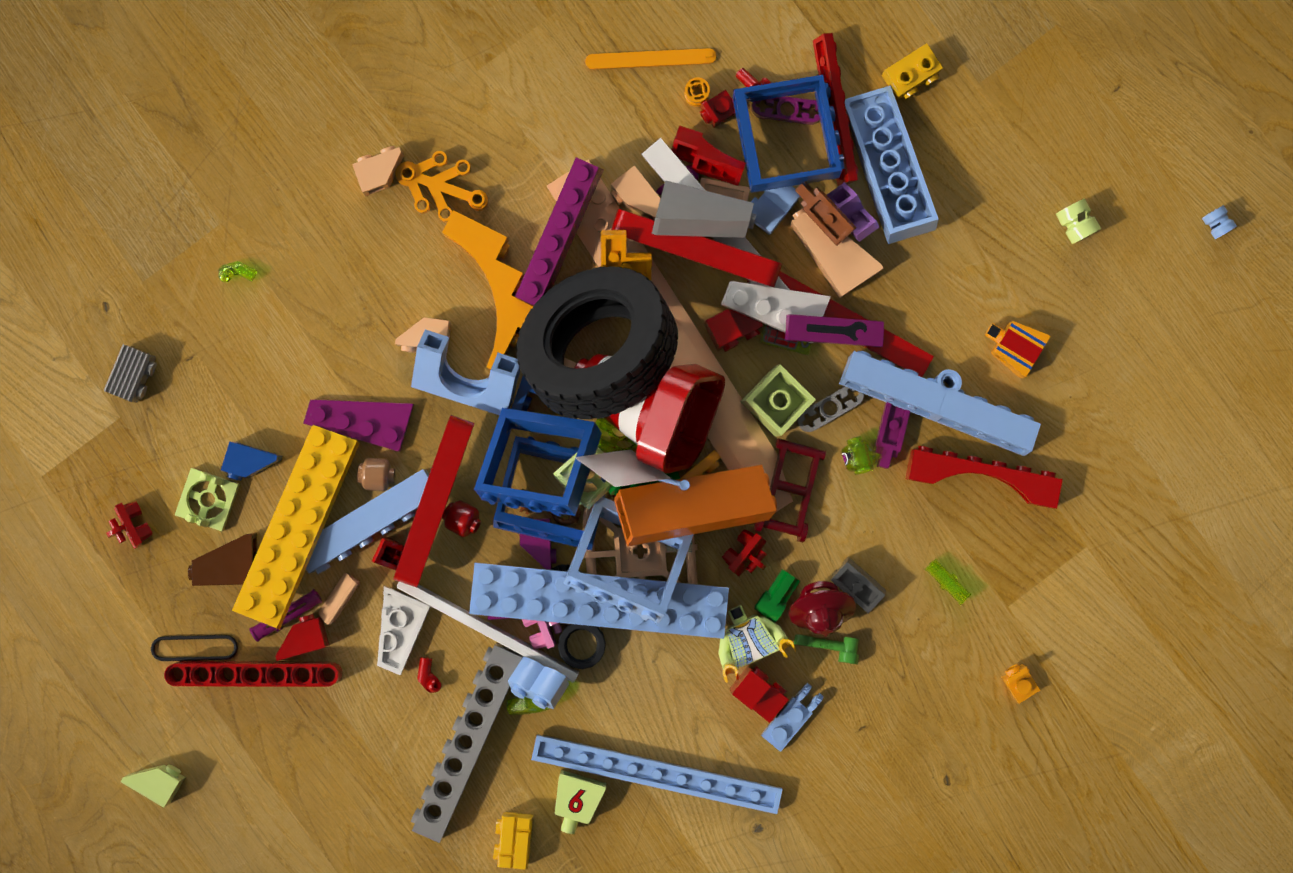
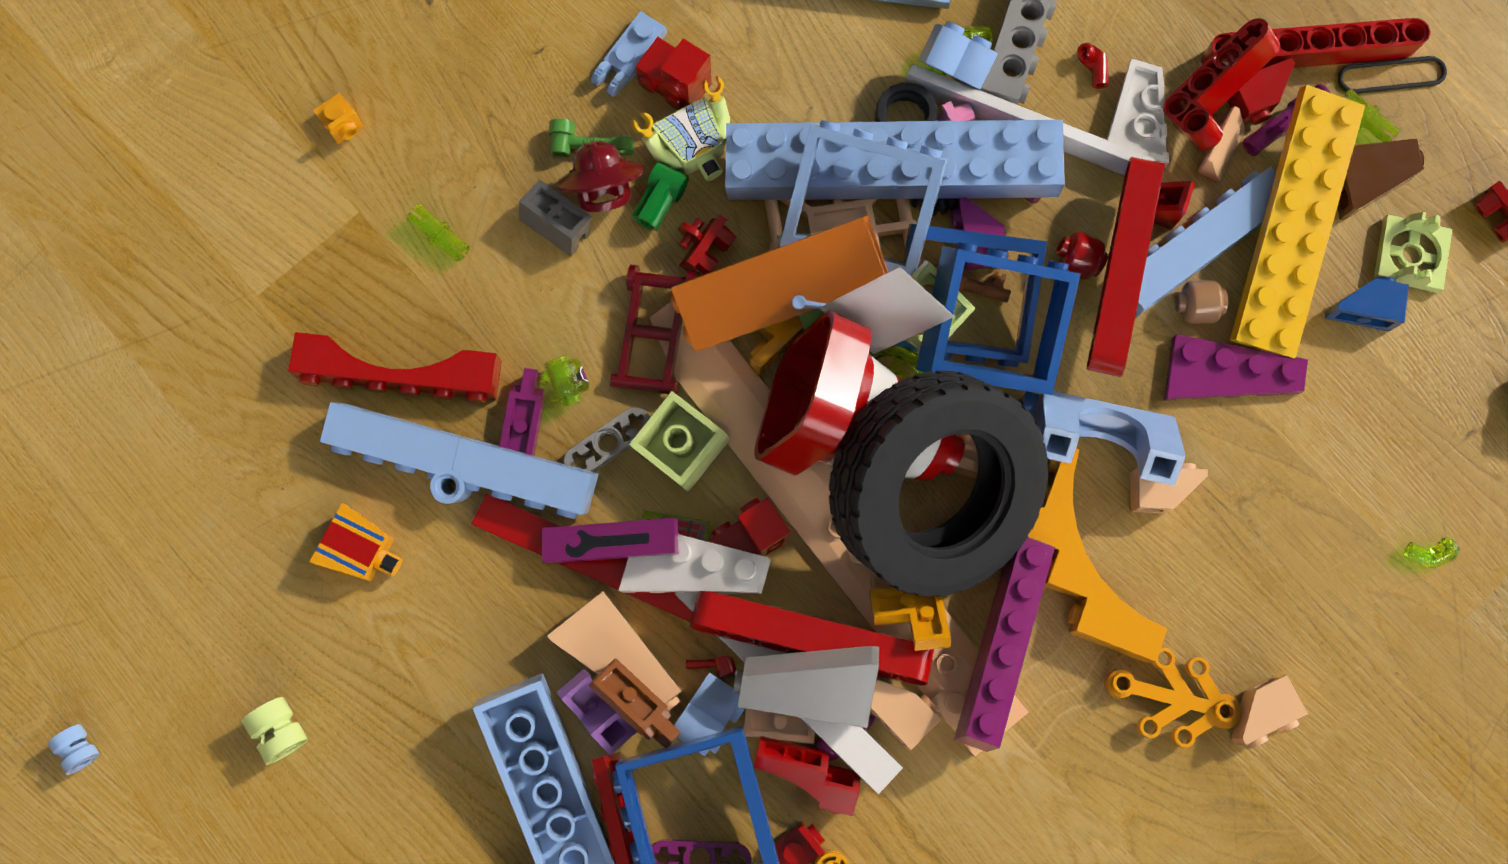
camera: 175 degrees right, 10 degrees down
(221, 611) = (1373, 120): none -> clear neon green pin
(314, 663) = (1217, 80): none -> red beam
(758, 239) = (724, 665): none -> red hand

